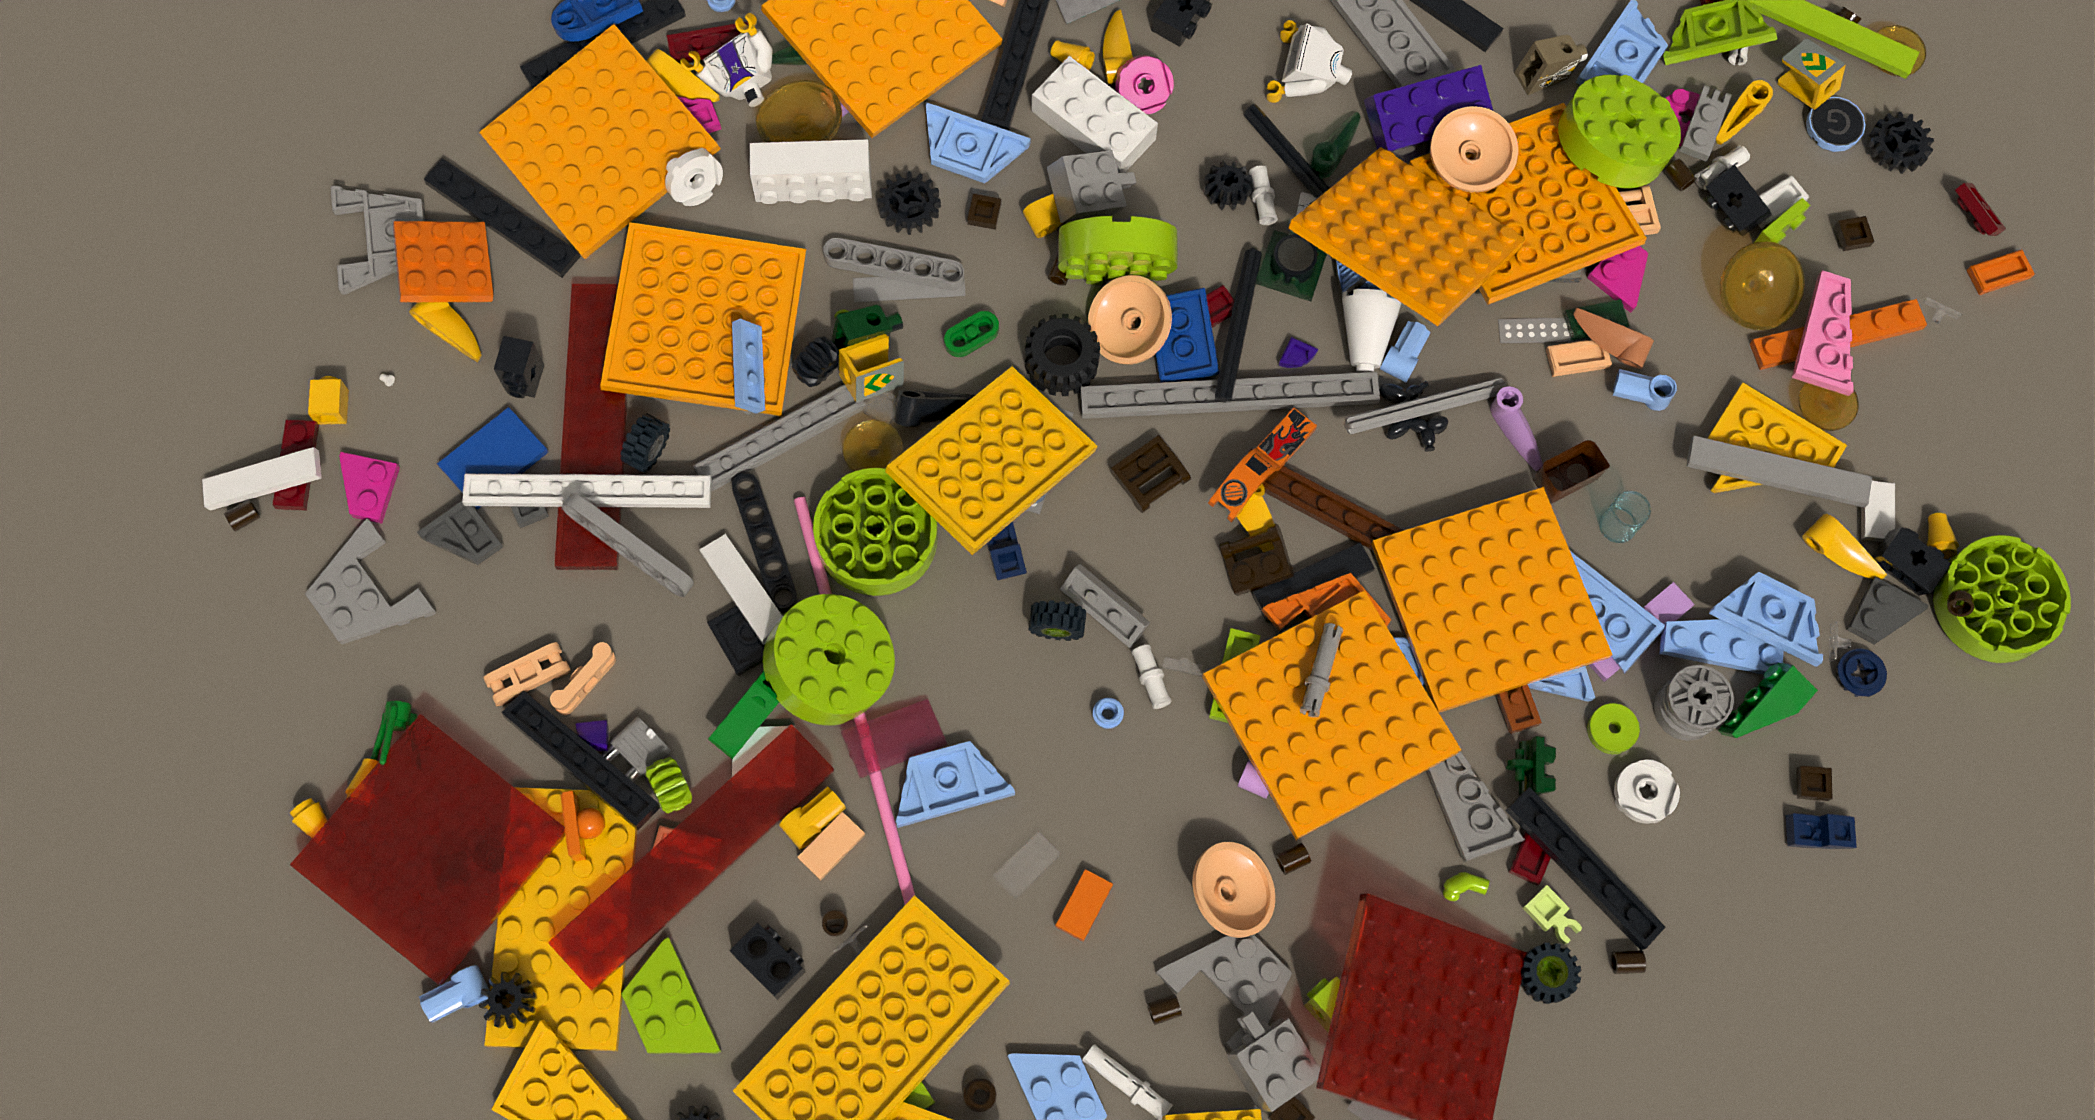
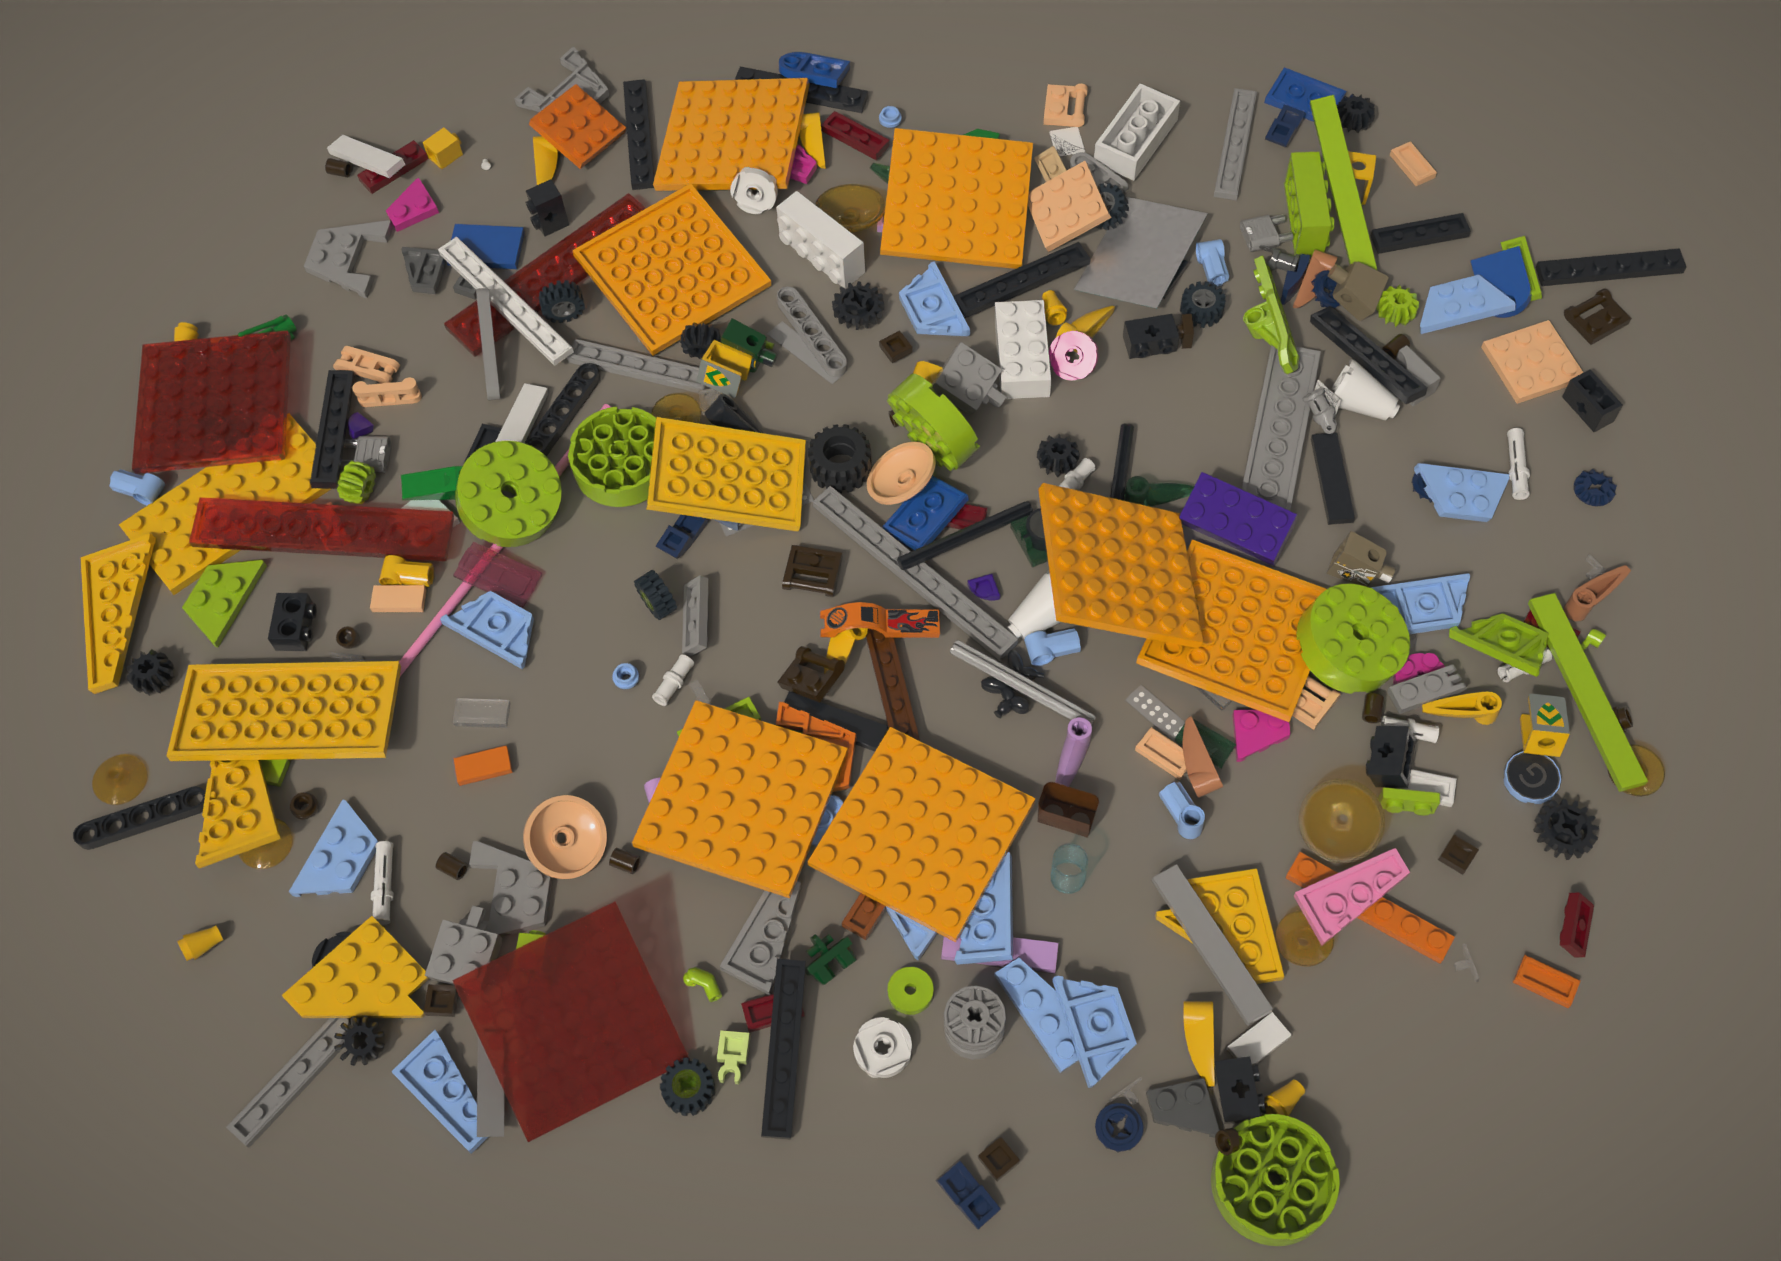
camera: 55 degrees right, 10 degrees down
(501, 1012) = (149, 508): black gear -> none
(579, 825) = (287, 456): orange tile -> none
(738, 66) = (850, 155): white torso -> none
(748, 366) = (658, 307): light blue plate -> none
(969, 333) = (808, 404): green plate -> none
(1311, 62) = (1194, 430): white torso -> none
(1317, 682) = (759, 760): light grey pin -> none
(1483, 135) = (1236, 546): light nougat dish -> none
(1628, 962) = (743, 1134): dark brown hinge -> none
(1776, 697) = (1034, 1079): green slope -> none

